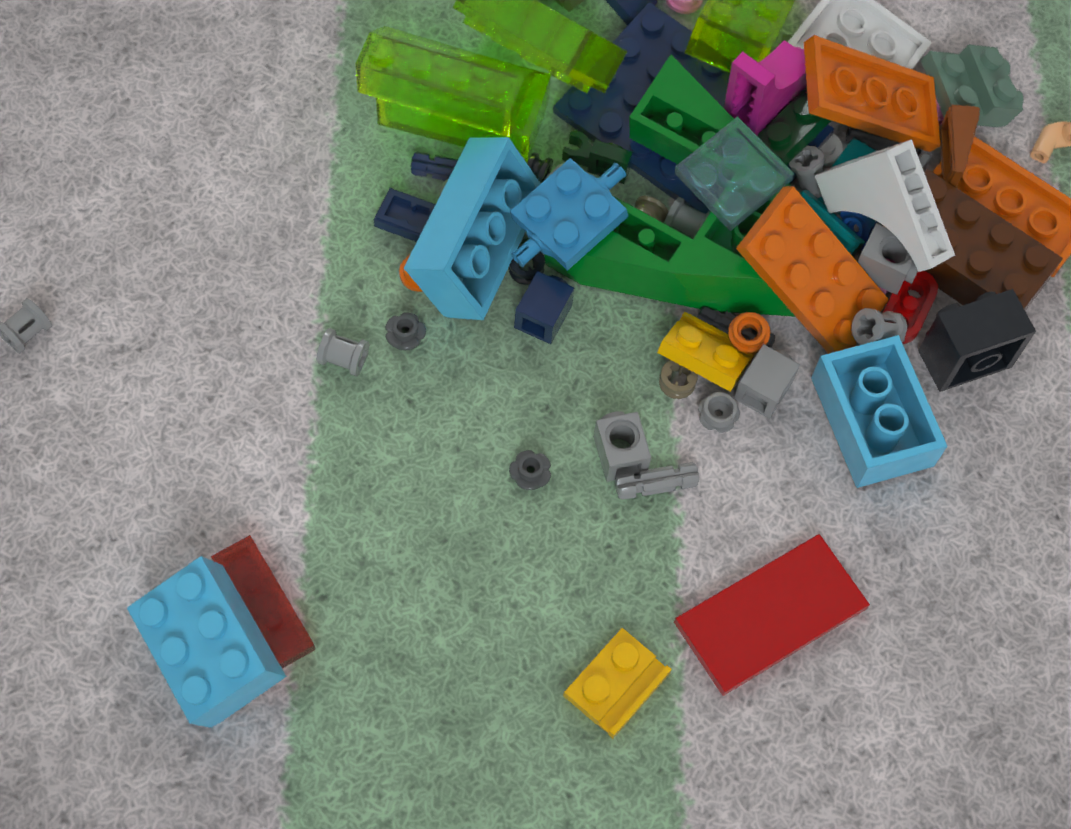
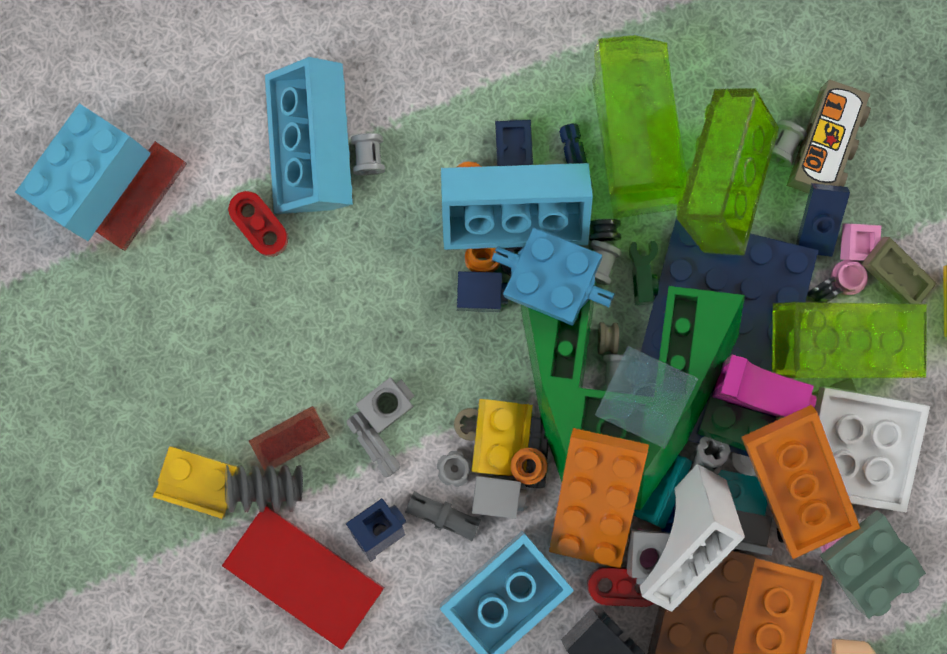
camera: 65 degrees right, 20 degrees up
(292, 402) = (308, 137): none -> medium azure slope
(359, 488) = (259, 224): none -> red plate
(408, 340) = (410, 183): dark grey plate -> none
(510, 292) = (475, 265): none -> orange plate
(527, 480) = (343, 350): dark grey plate -> none
(613, 563) = (289, 438): none -> clear red plate
(658, 601) = (263, 488): none -> dark grey piece
(689, 14) = (825, 291): none -> black bush
(754, 525) = (364, 524): none -> dark blue brick
(764, 444) = (443, 516): none -> dark grey pin
(873, 322) = (583, 568): light grey bush -> none
(956, 140) = (803, 571): dark orange slope -> none

